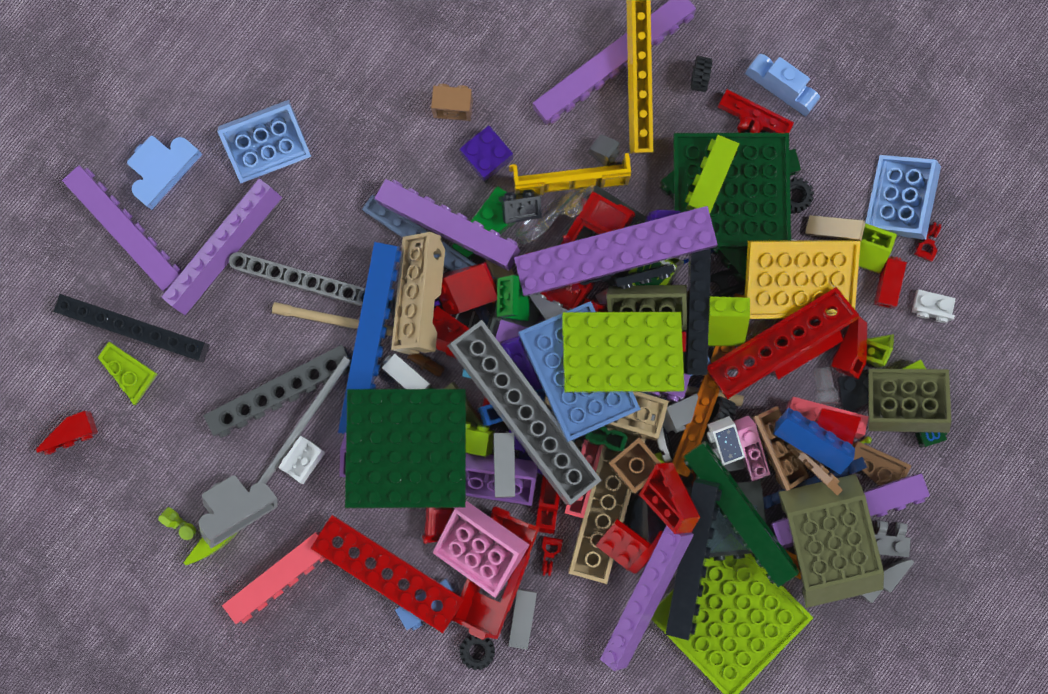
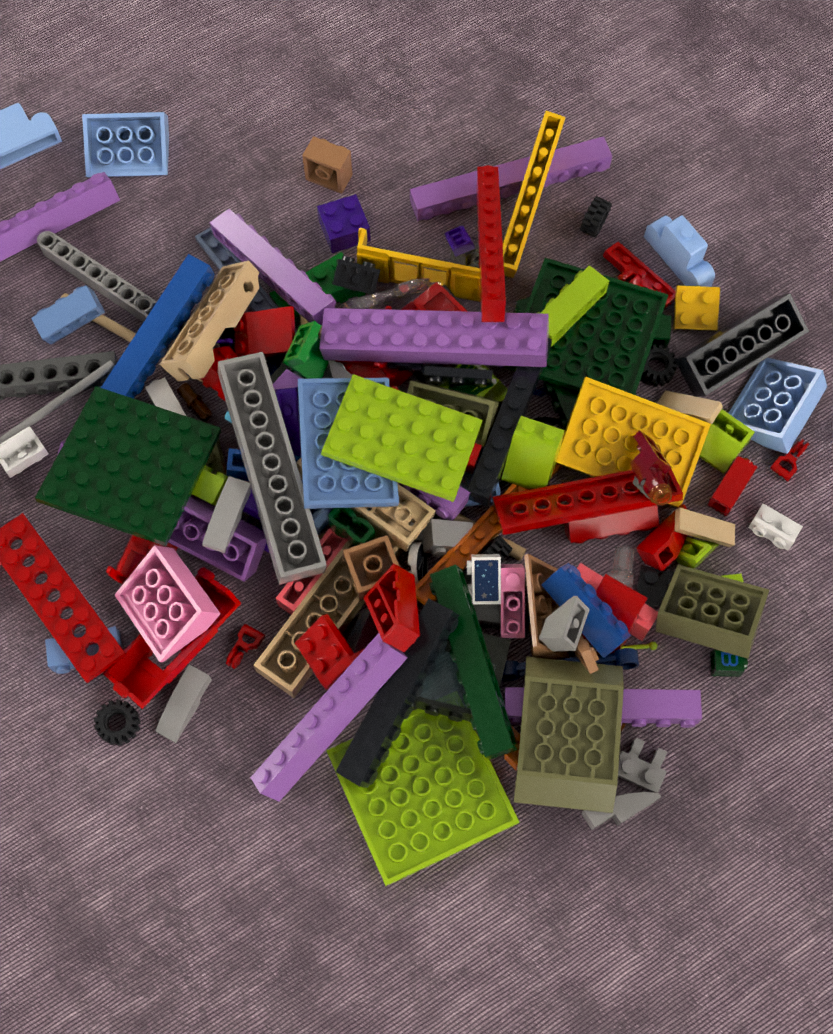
camera: 20 degrees right, 15 degrees down
(287, 324) = (68, 314): none -> medium blue brick
(547, 508) = (261, 594): red slope -> none
(594, 140) = (459, 240): none -> dark purple tile
(631, 148) = (490, 245): none -> red brick
(806, 464) = (565, 625): none -> light grey slope
(812, 131) = (696, 308): none -> yellow plate
(826, 304) = (650, 470): none -> dark red plate
(862, 155) = (741, 345): none -> black brick
(880, 329) = (704, 527): none -> tan tile
(881, 466) = (656, 673): medium nougat wing -> none

